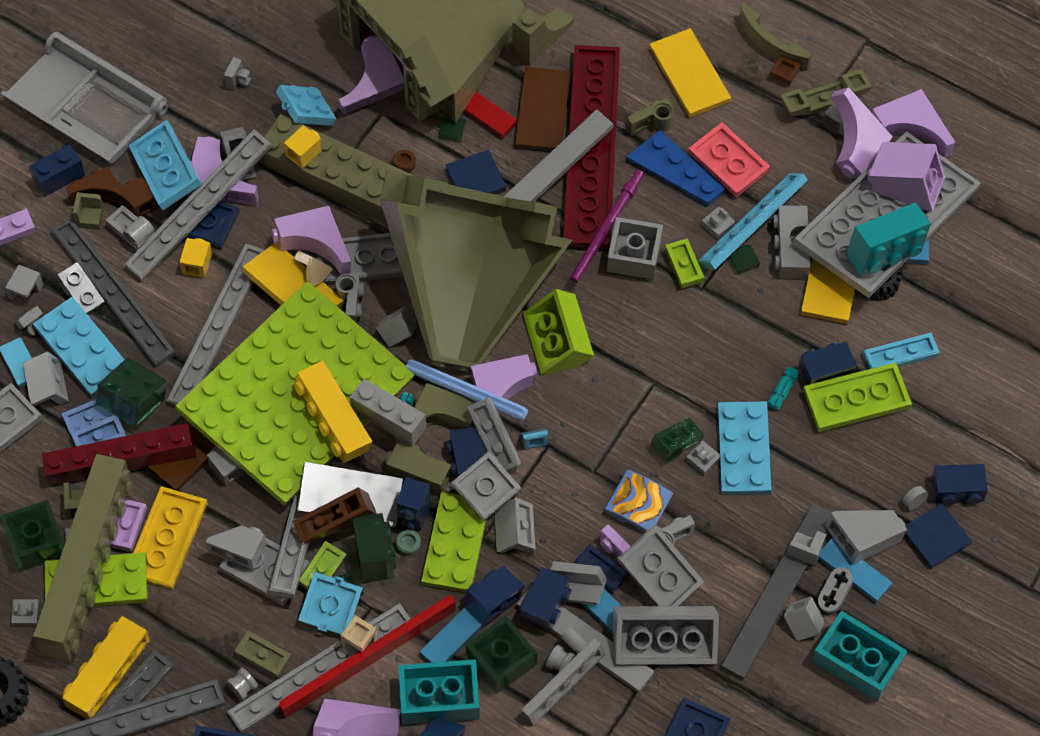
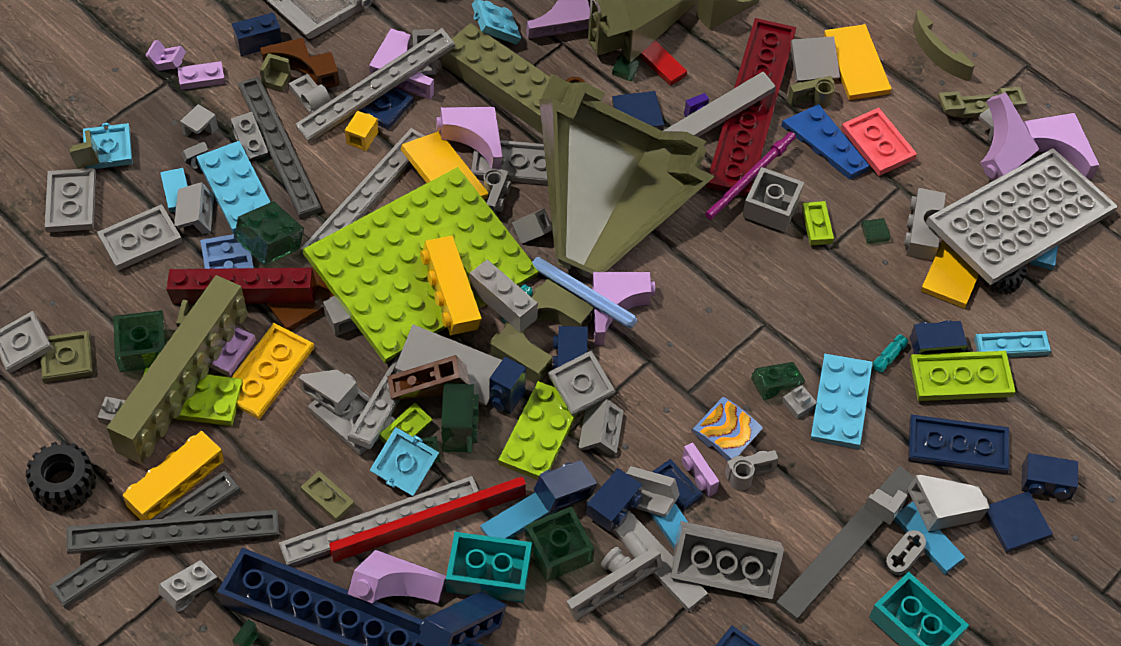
camera: 10 degrees right, 5 degrees down
(165, 164) = (355, 46): medium azure plate -> none
(242, 683) = (299, 519): light grey wheel -> none
(303, 146) = (482, 50): yellow brick -> none
(316, 270) = (468, 161): tan tile -> none
(358, 634) = (423, 494): tan panel -> none
(408, 542) = (495, 422): sand green tile -> none
(494, 433) = (600, 335): light grey tile -> none
(534, 157) = (695, 104): none -> dark purple plate
(534, 438) = (639, 351): medium azure slope -> none
(542, 109) = (713, 65): reddish brown tile -> none
(558, 332) = (683, 260): lime slope -> none
(646, 80) = (814, 58): none -> light grey tile
(660, 569) = (734, 494): light grey plate -> none
(718, 222) = (857, 194): light grey tile -> none
(752, 220) = (890, 198): medium azure tile -> none
(785, 70) = (947, 75): reddish brown plate -> none
(804, 618) = (869, 573): light grey panel -> none
(866, 468) = (958, 444): none -> dark blue tile
(888, 239) = (1020, 232): teal brick -> none
(908, 173) = (1049, 181): lavender slope -> none
(915, 497) = (1002, 480): light grey tile -> none

